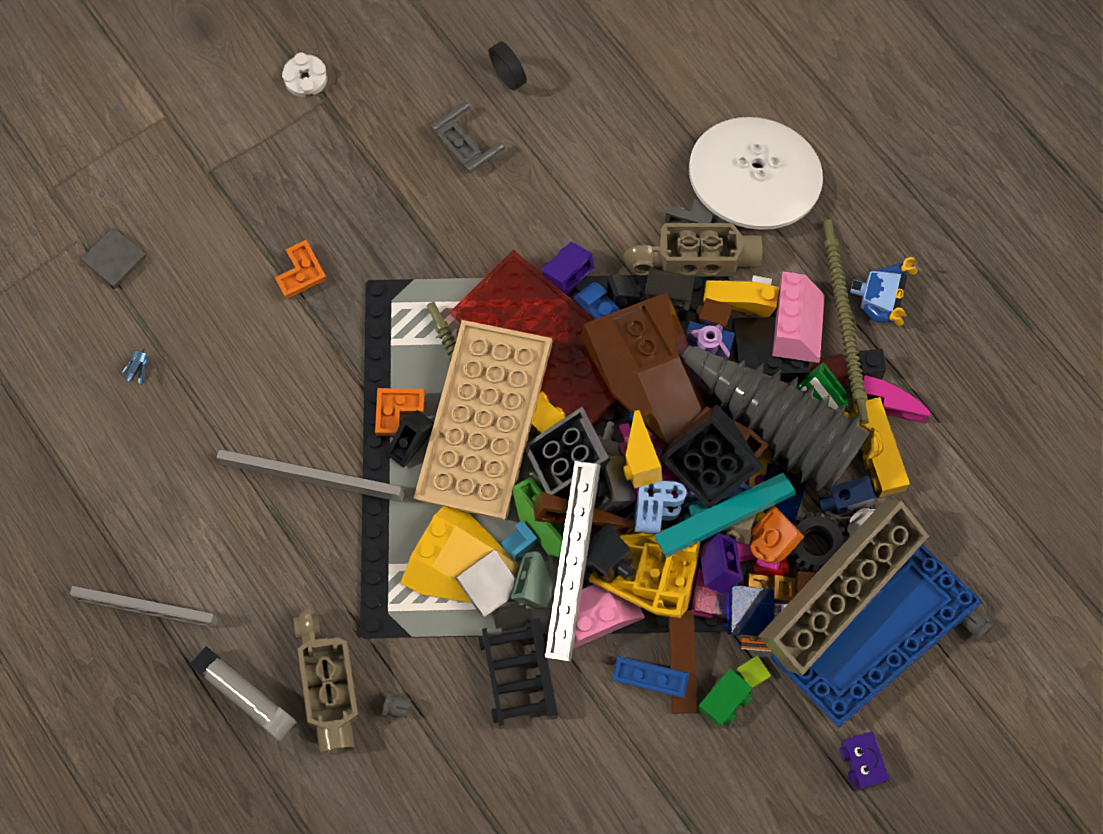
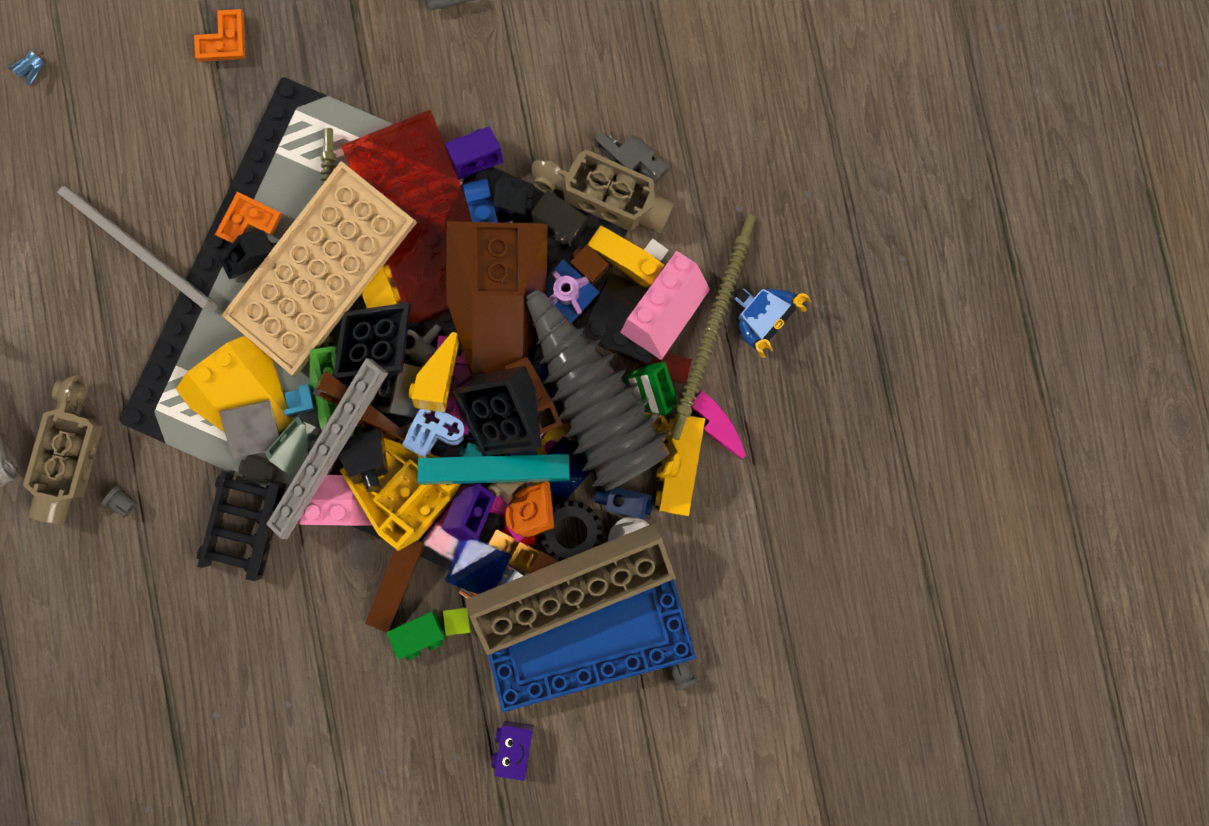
camera: 25 degrees right, 15 degrees up
(651, 676) = (359, 583): blue tile -> none
(751, 196) = (697, 164): white dish -> none
(872, 363) = (715, 381): black brick -> none

